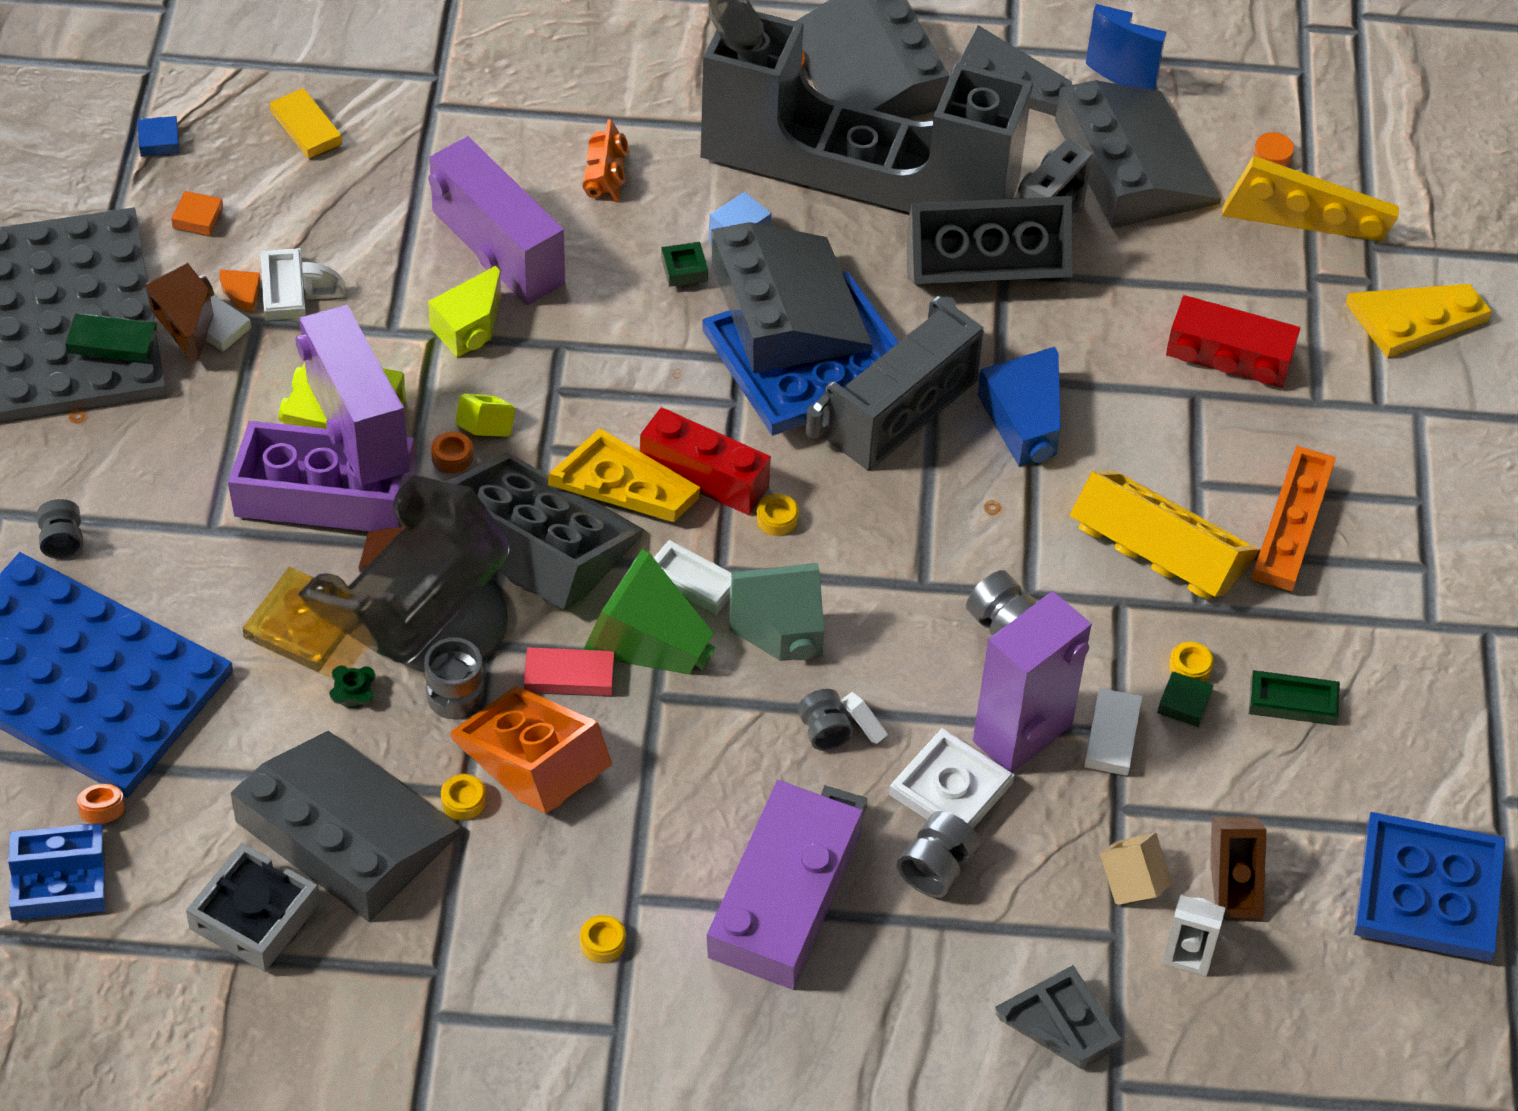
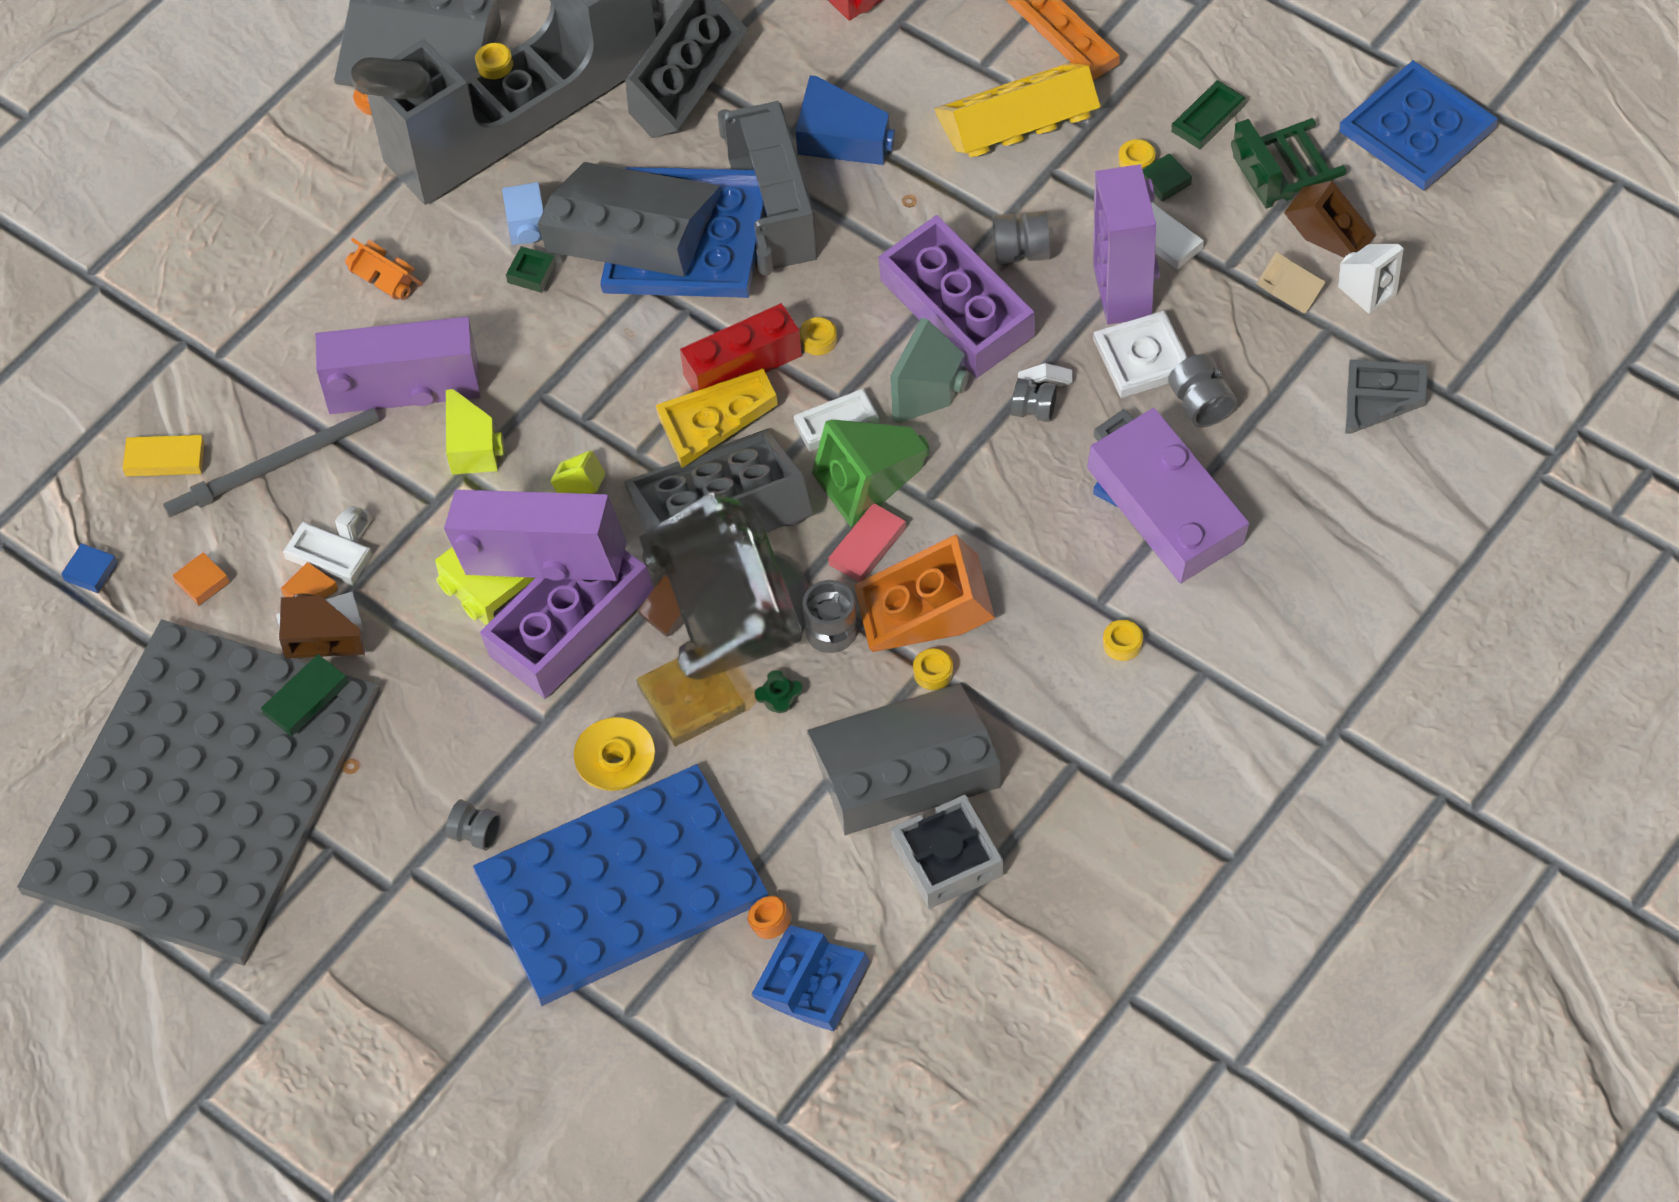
camera: 50 degrees left, 5 degrees up
(199, 580) = (609, 740): none -> yellow dish
(286, 168) = (203, 493): none -> dark grey bar
(867, 107) = (494, 60): none -> yellow tile
(892, 593) = (958, 294): none -> medium lavender brick
(1261, 770) = (1264, 172): none -> dark green plate

